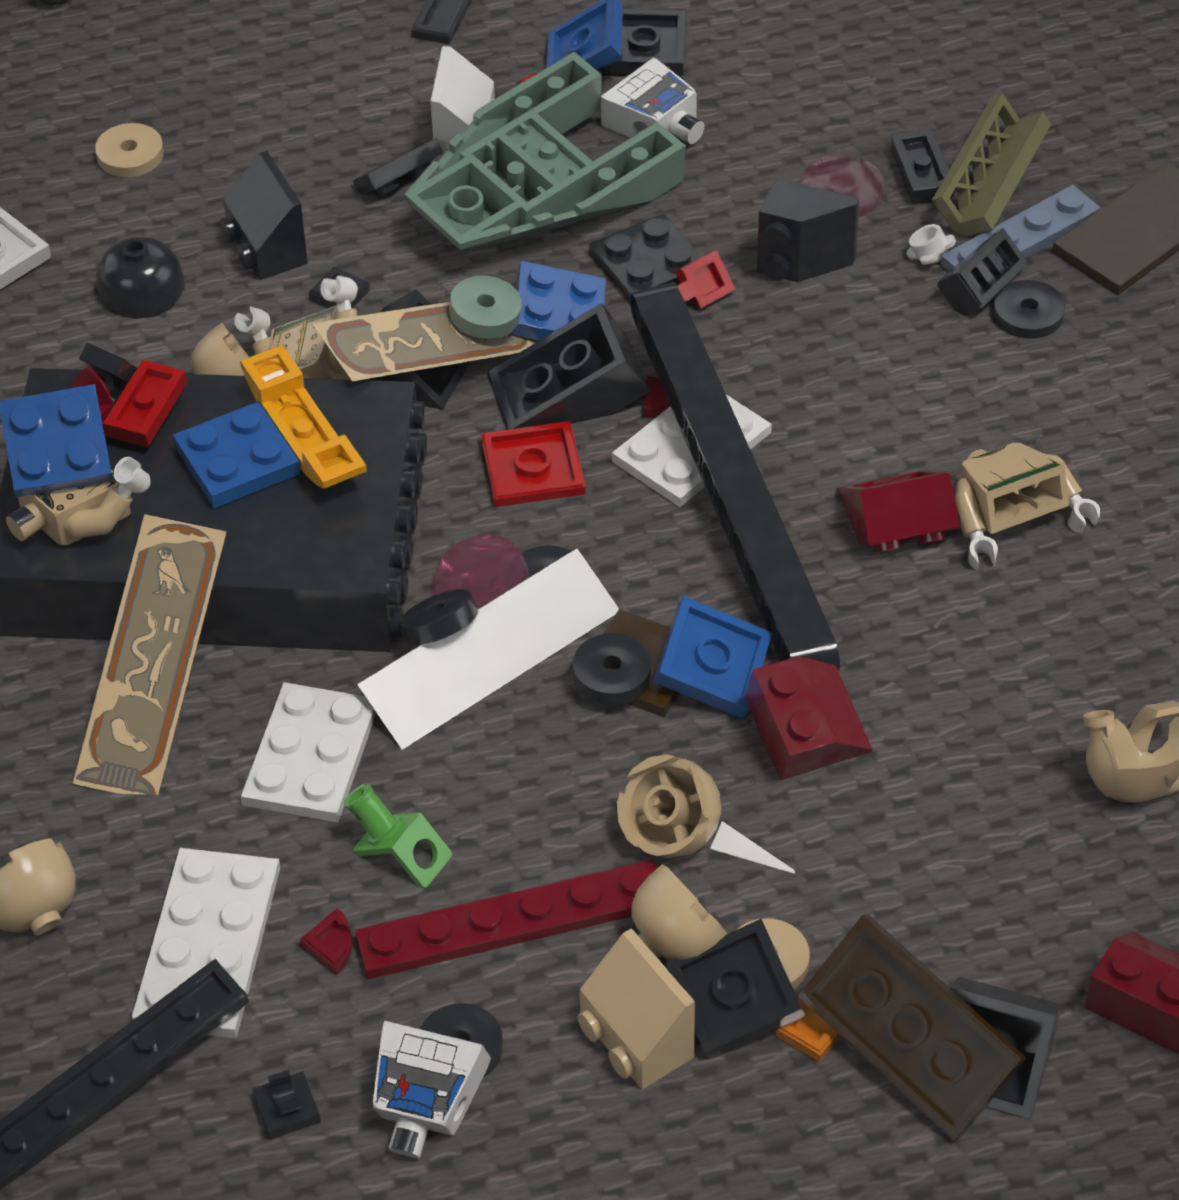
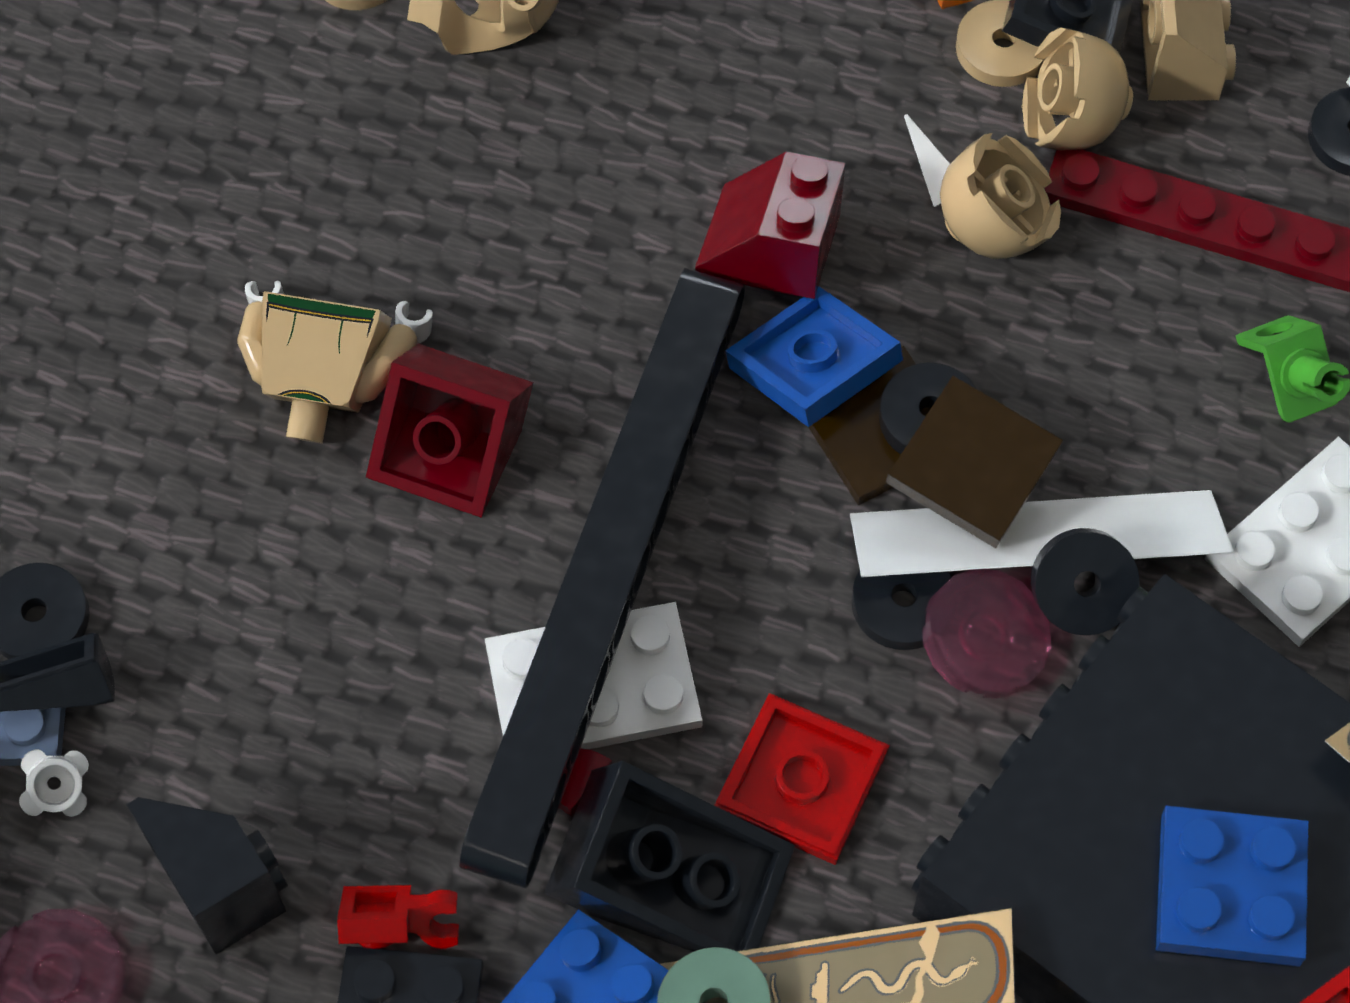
camera: 145 degrees left, 15 degrees up
(281, 391) = (1126, 858): light orange slope -> none
(557, 638) = (974, 461): none -> dark brown tile

